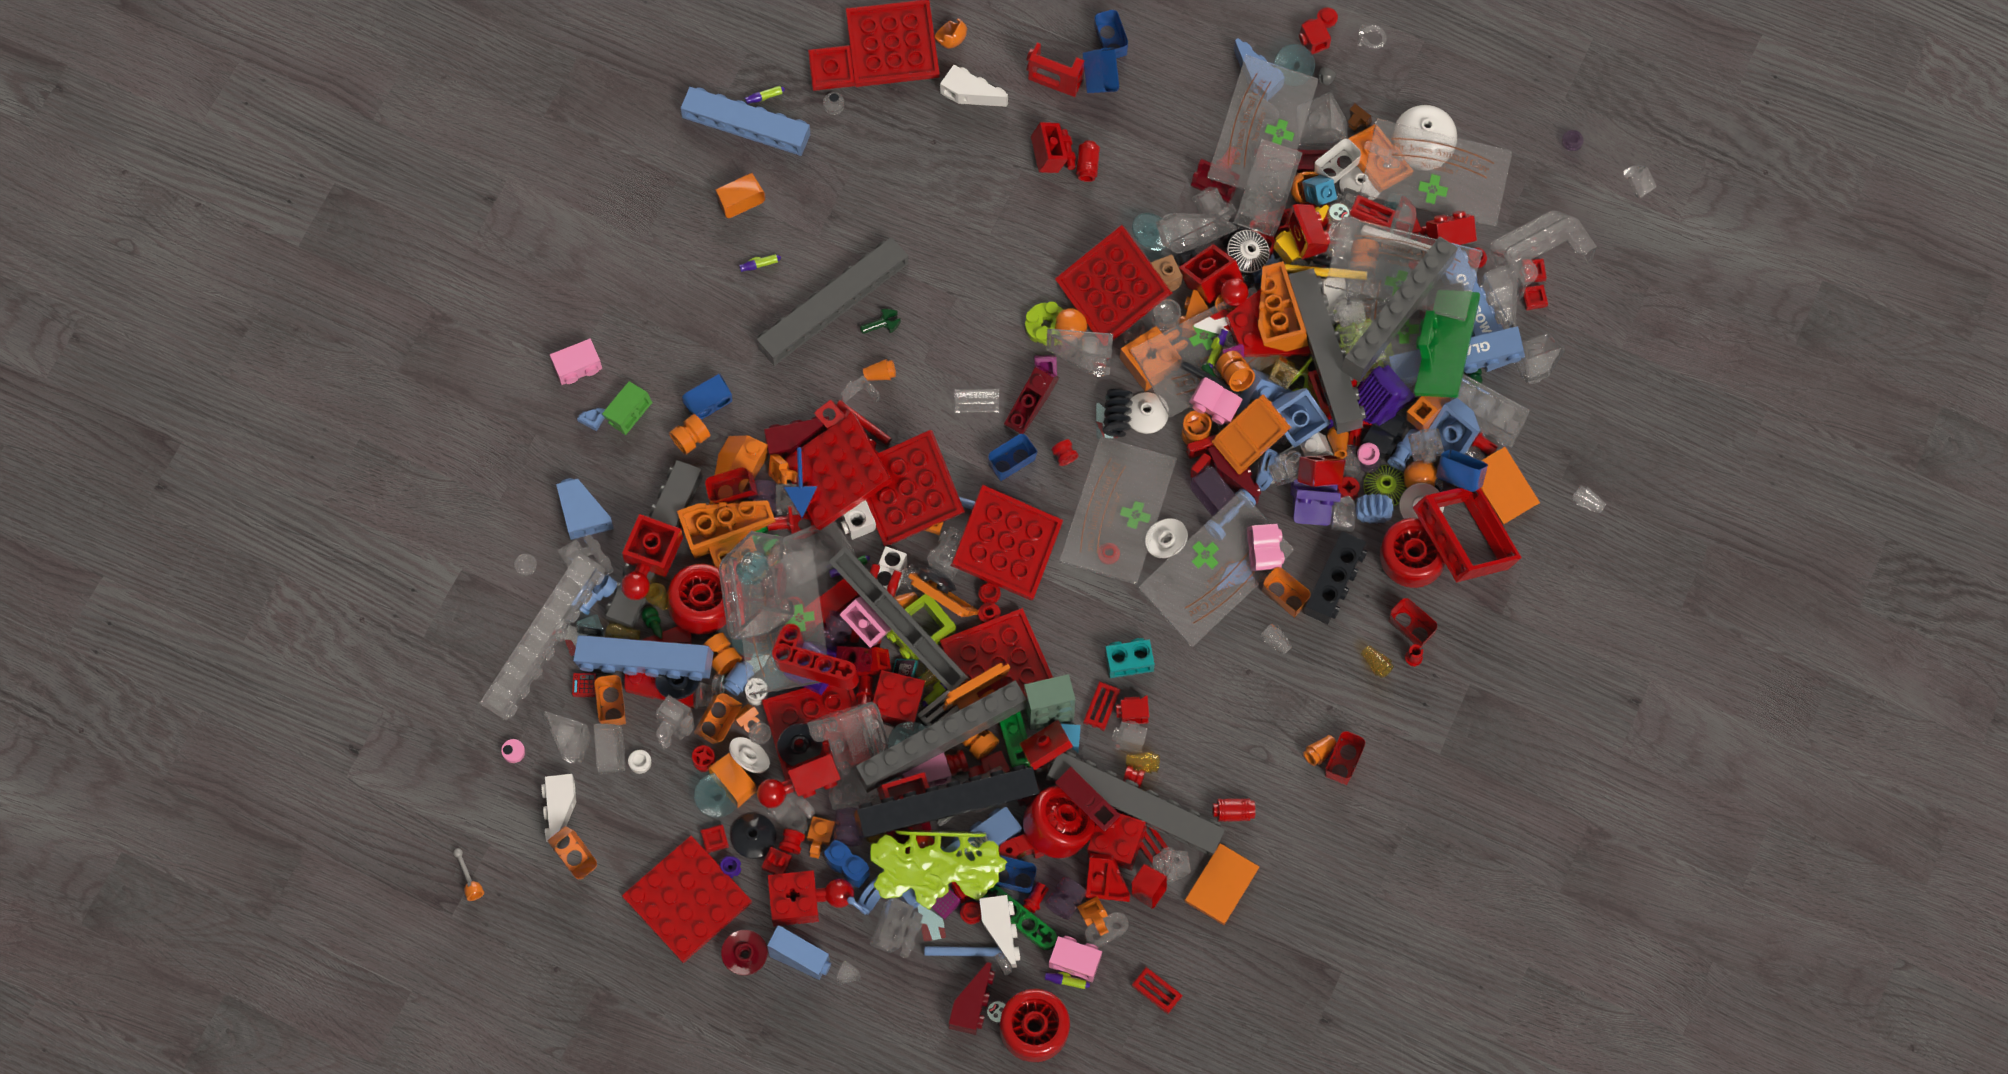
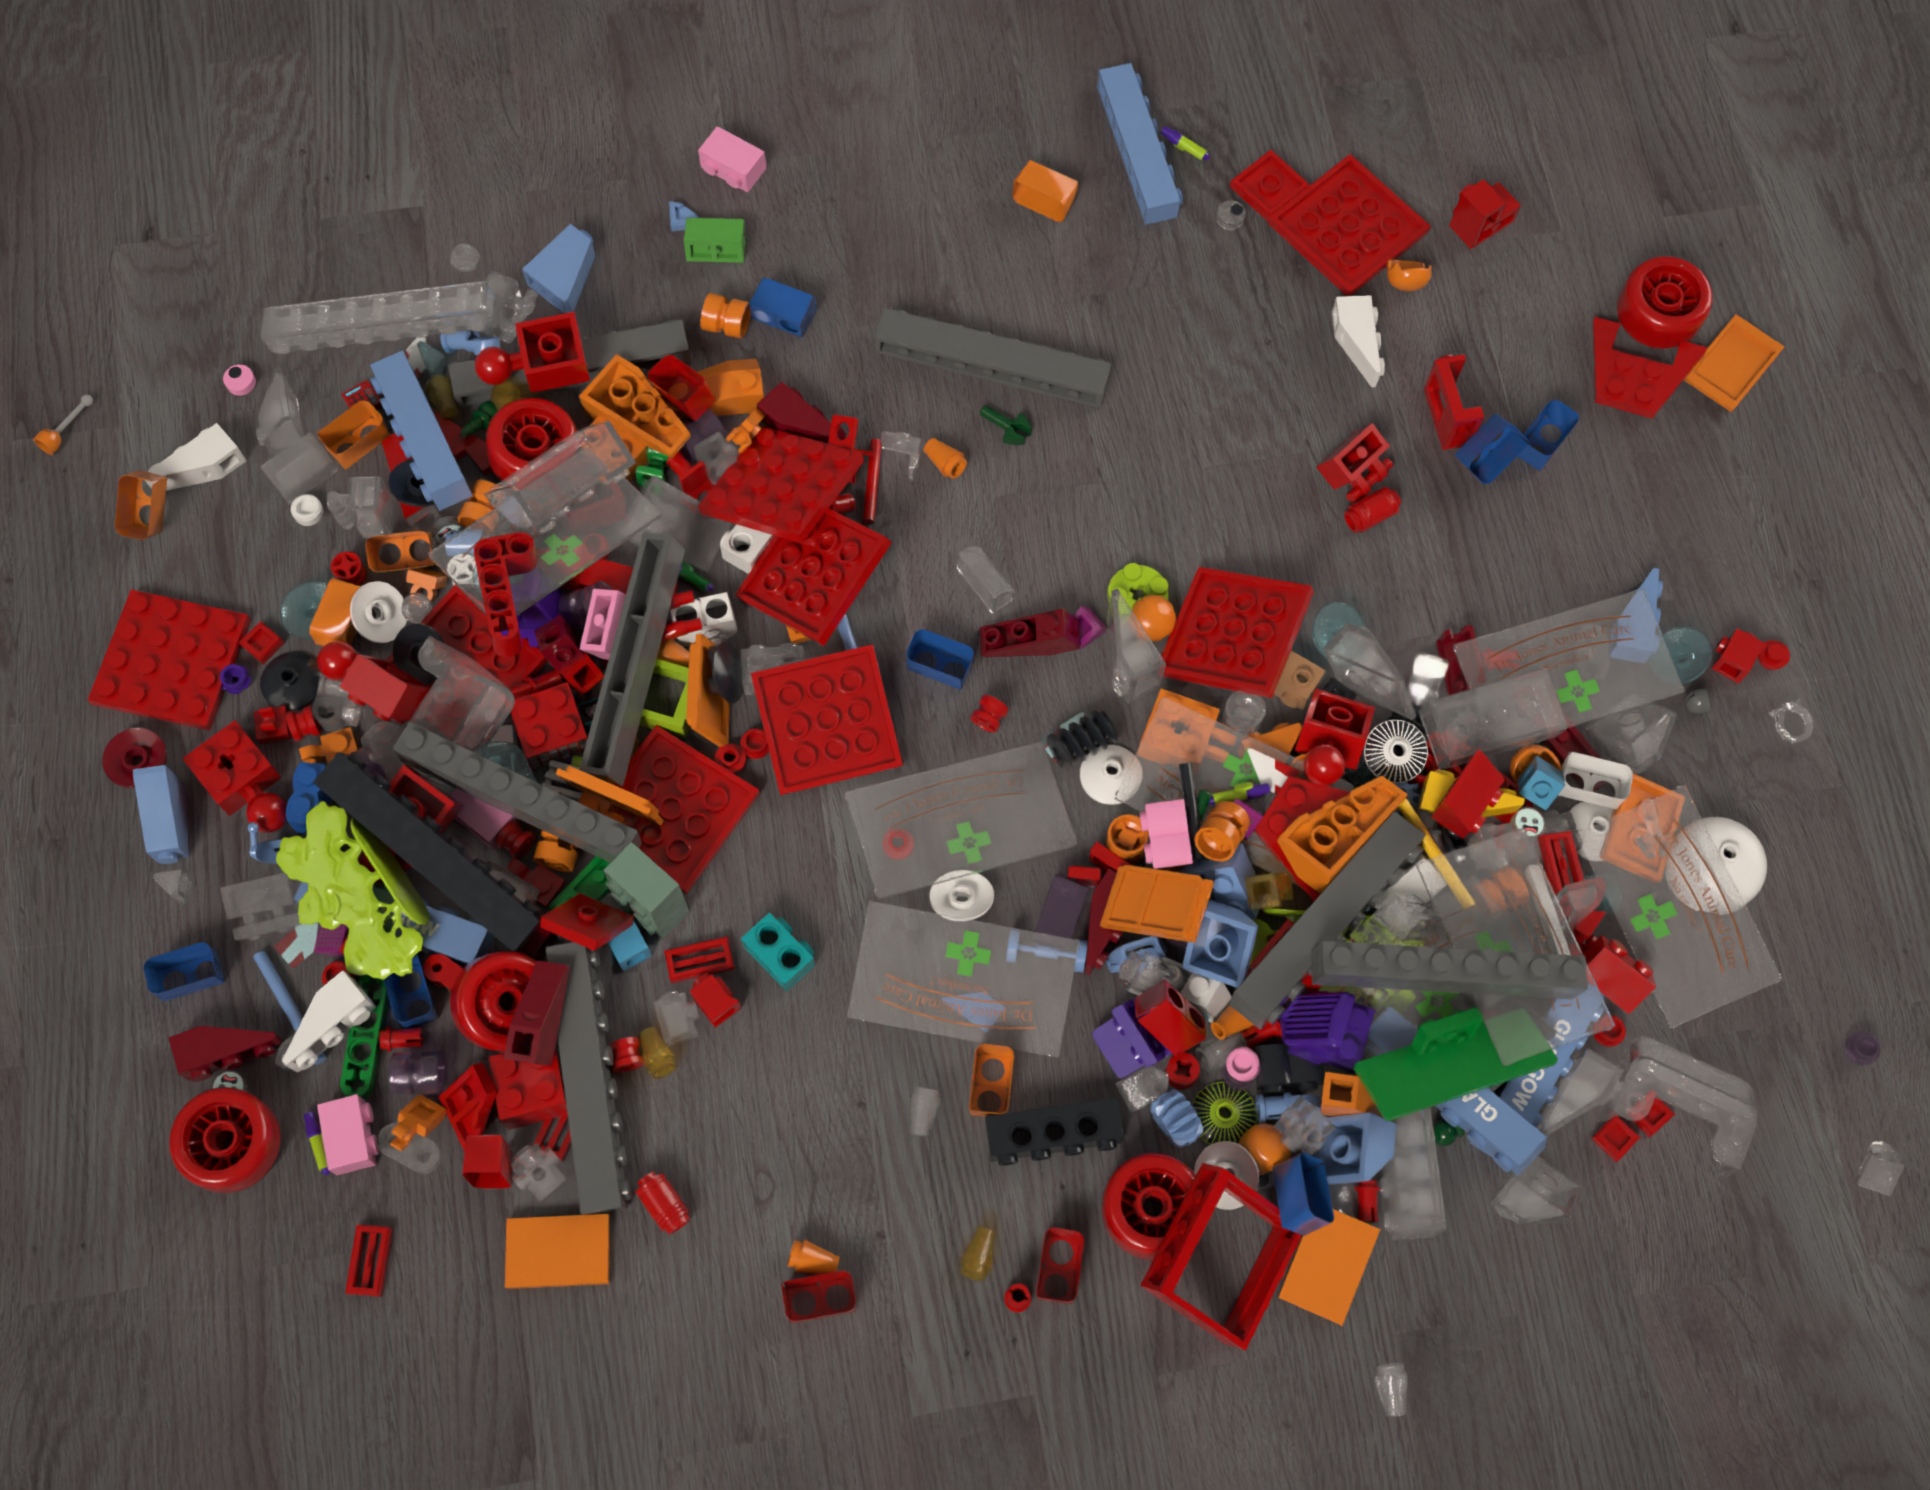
camera: 55 degrees right, 0 degrees up
(752, 568) = (579, 459): clear light blue head -> none
(758, 262) = (985, 260): piece -> none
(800, 495) = (723, 464): blue piece -> none
(906, 976) = (159, 966): none -> blue piece
(1264, 547) = (1028, 1018): bright pink brick -> none
(1358, 118) = (1674, 770): reddish brown tile -> none

